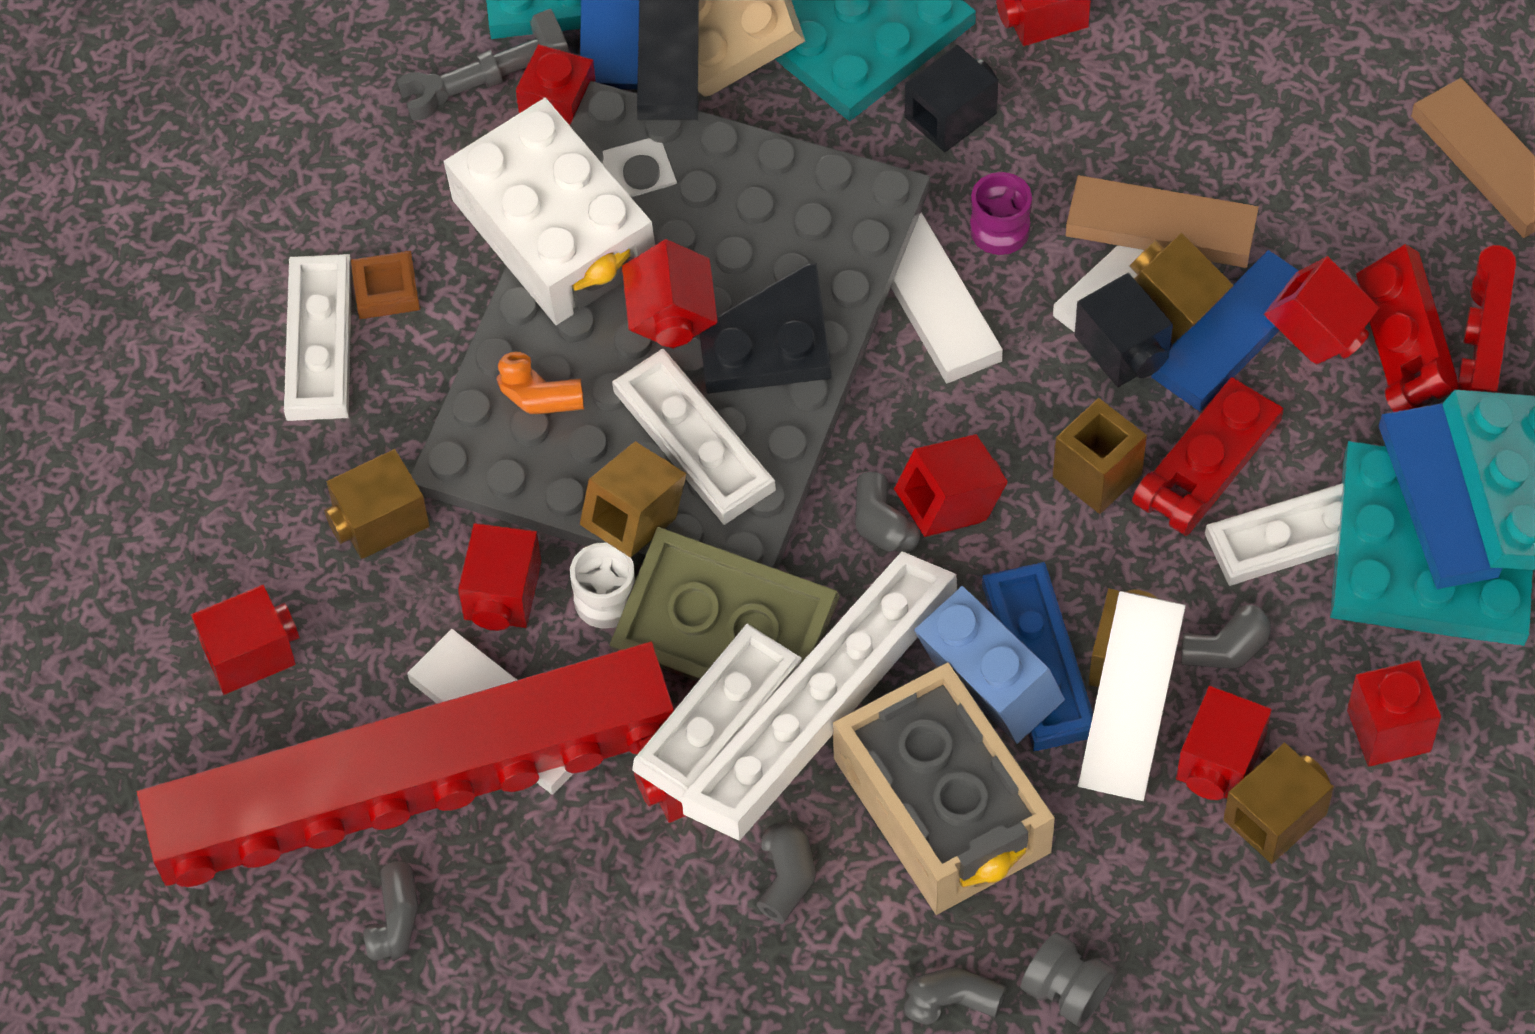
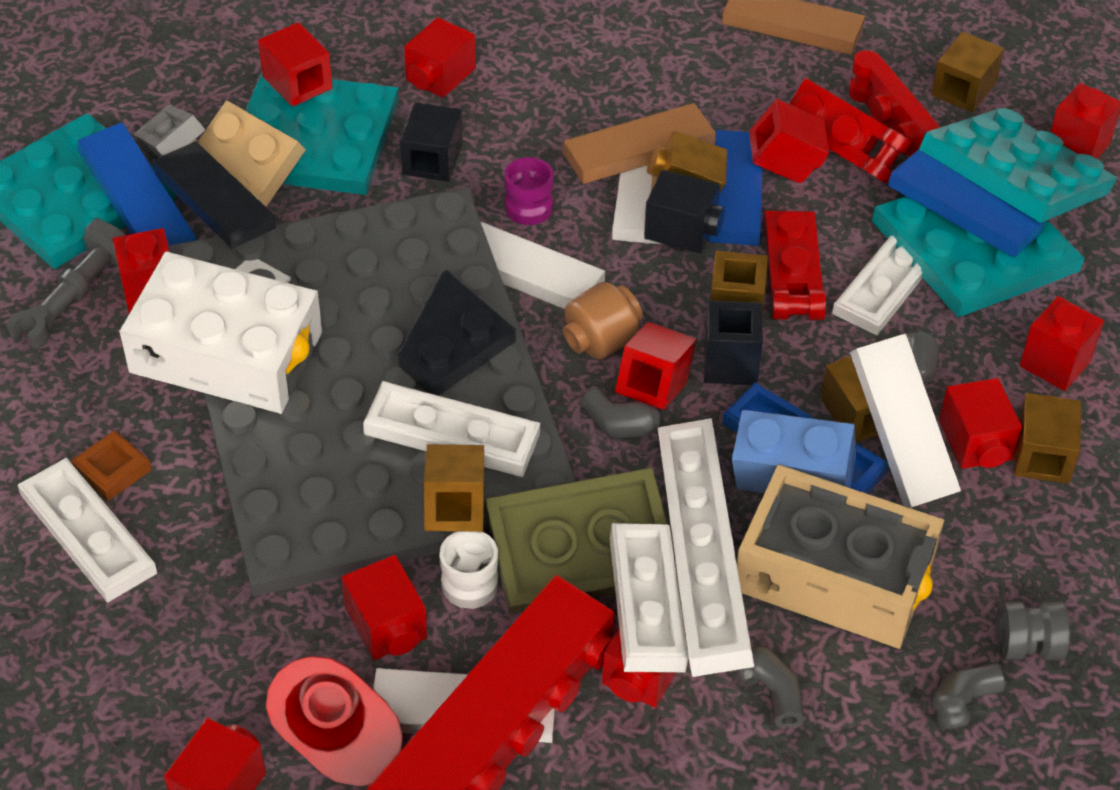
camera: 40 degrees left, 10 degrees down
(371, 649) = (334, 719): none -> piece
(376, 505) = (242, 613): pearl gold brick -> none
(532, 392) = (308, 464): orange arm -> none
(669, 294) = (363, 338): red brick -> none
(943, 403) = (602, 320): none -> medium nougat head
(1044, 507) = (733, 342): none -> black brick

